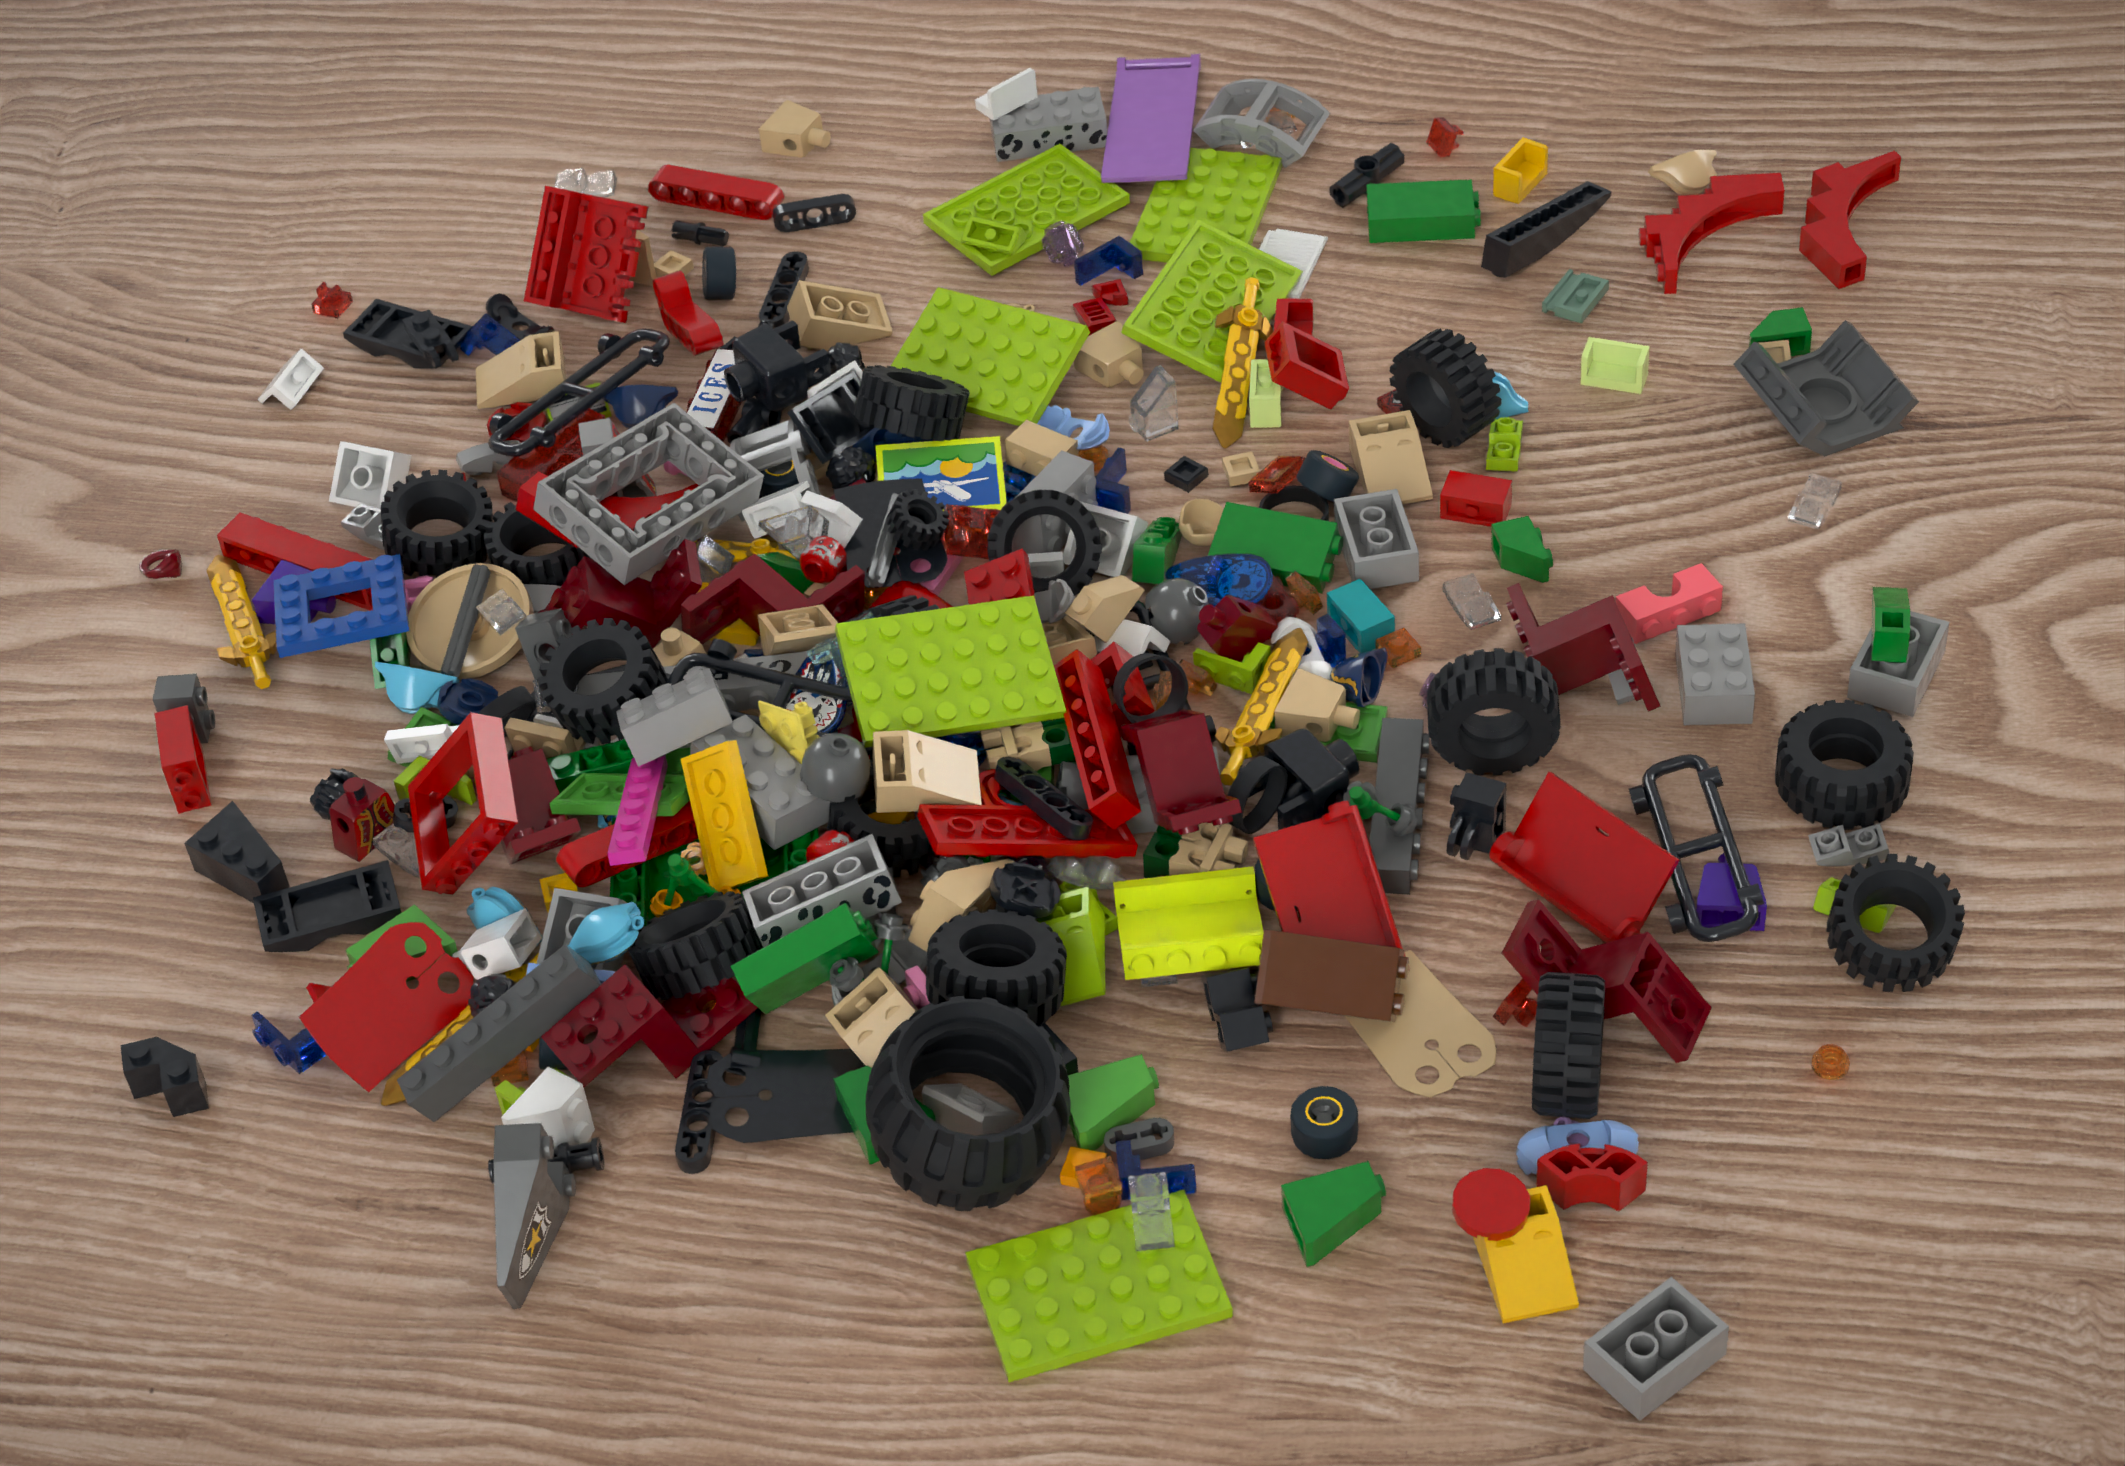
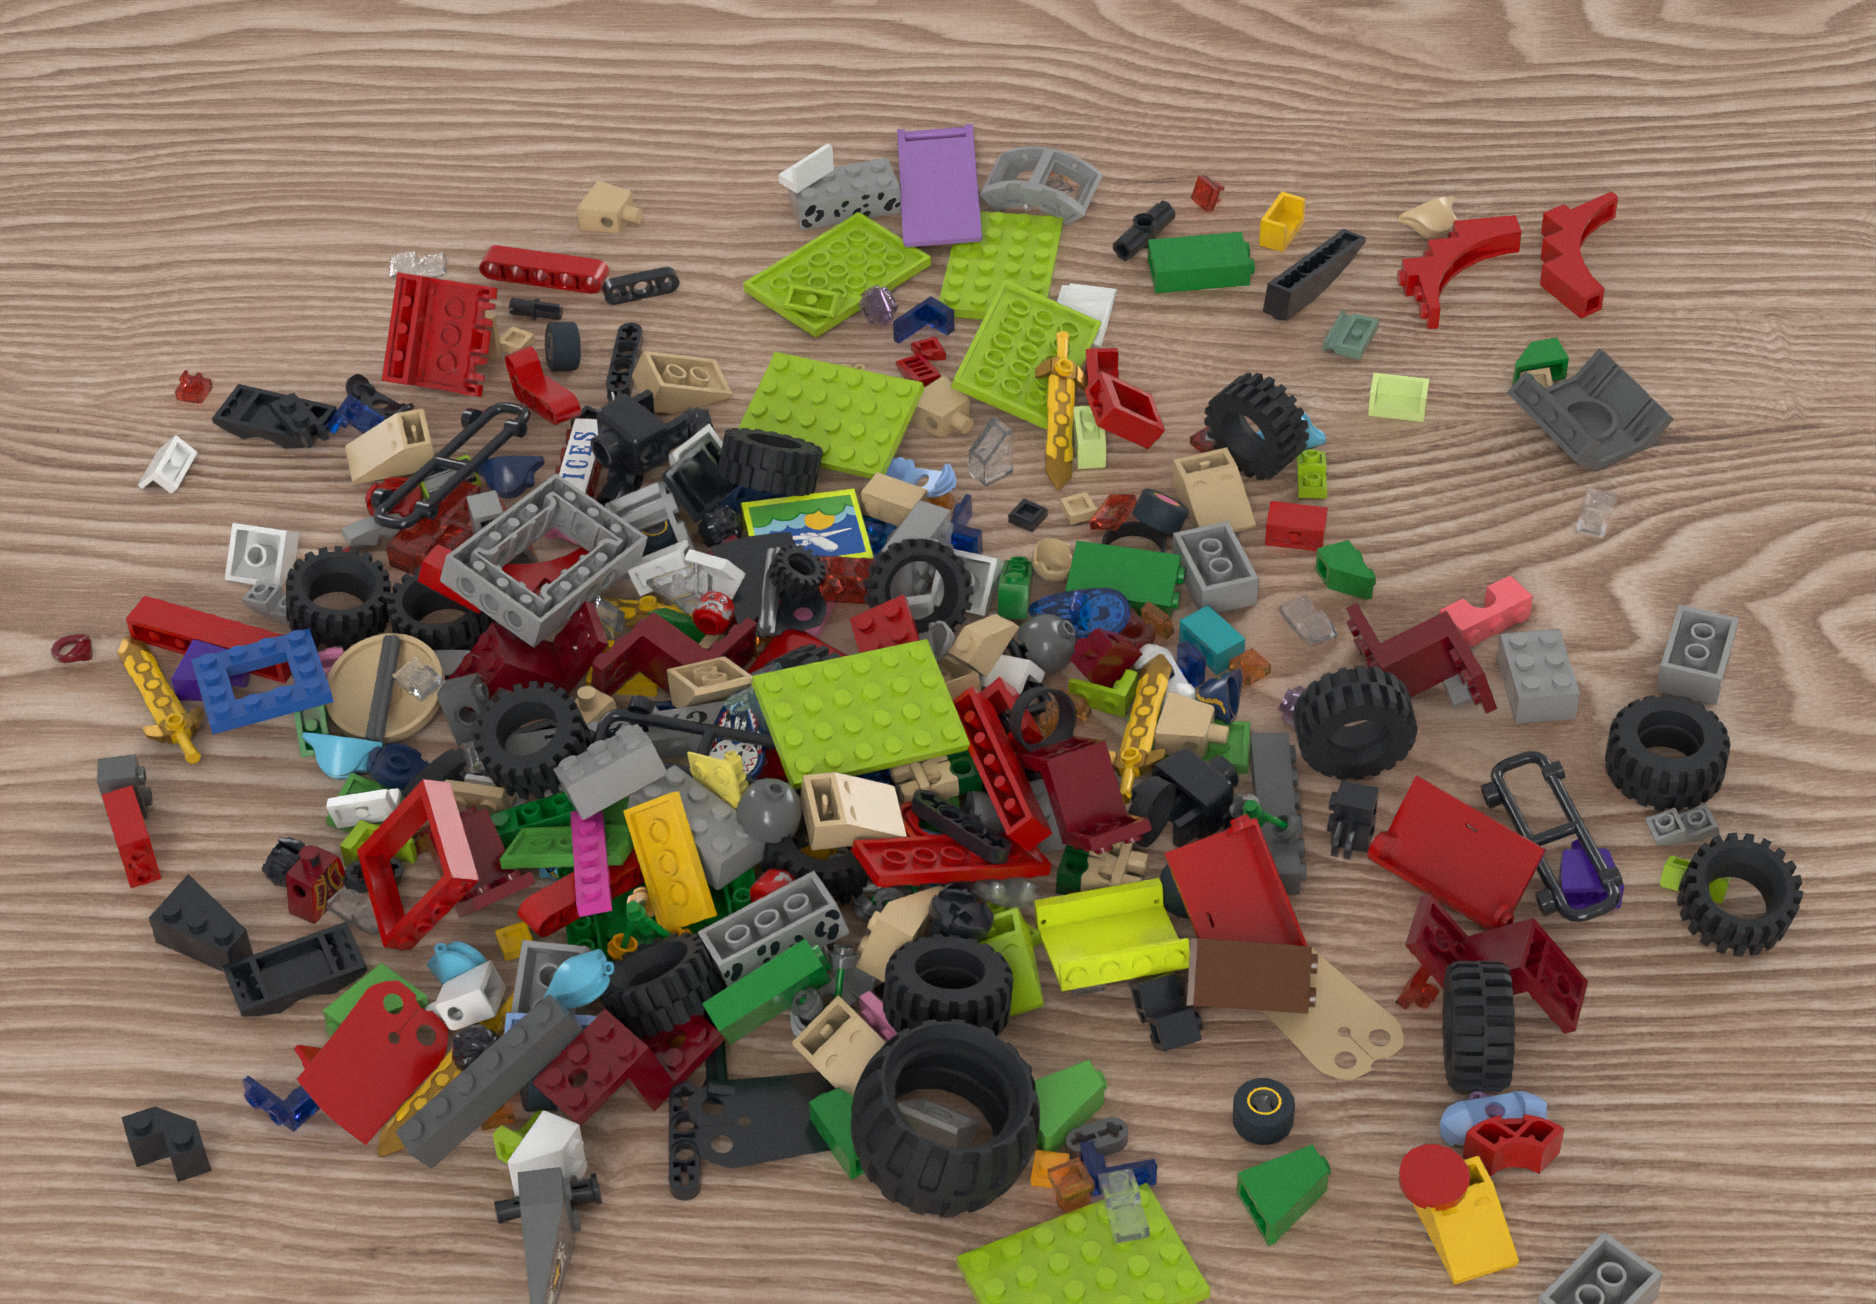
camera: 10 degrees left, 0 degrees up
(1831, 1055) = (1701, 1024): clear orange plate -> none
(1890, 624) = (1691, 623): green slope -> none

